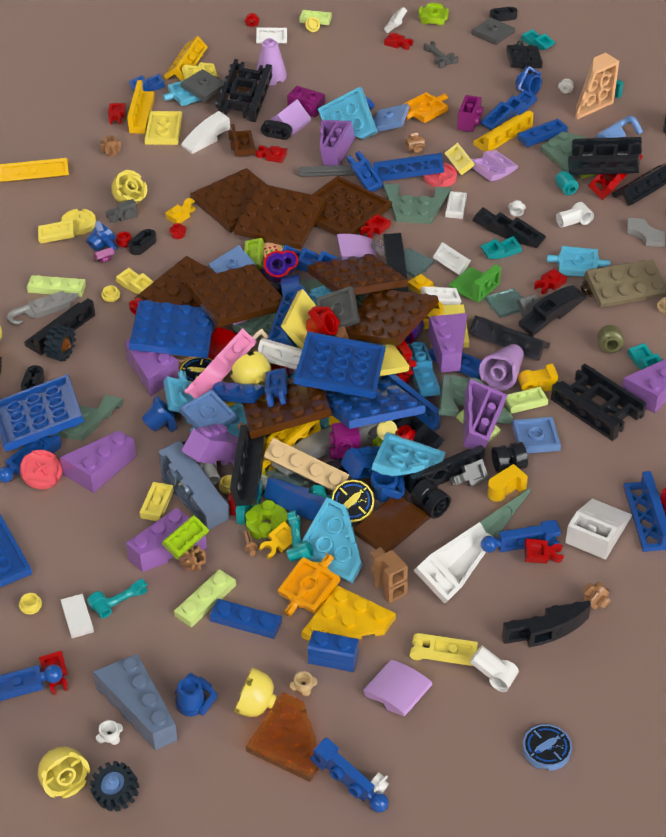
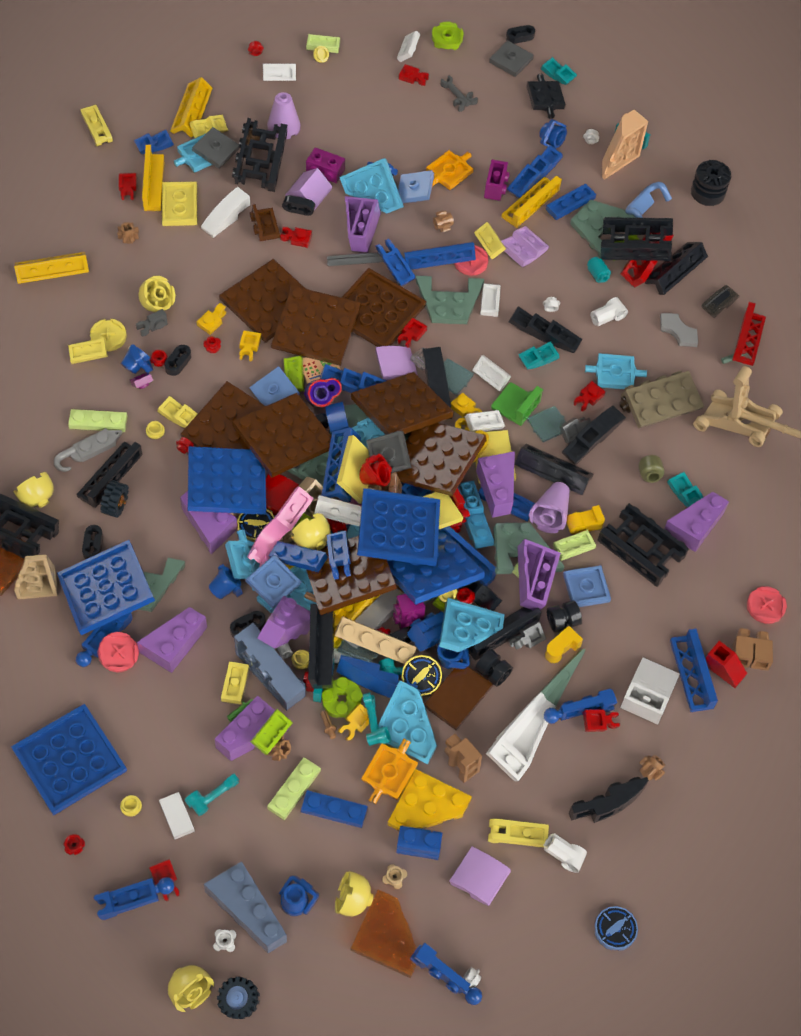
camera: 10 degrees left, 15 degrees up
(95, 70) = (96, 125): none -> light yellow plate
(213, 230) = (249, 343): none -> yellow plate

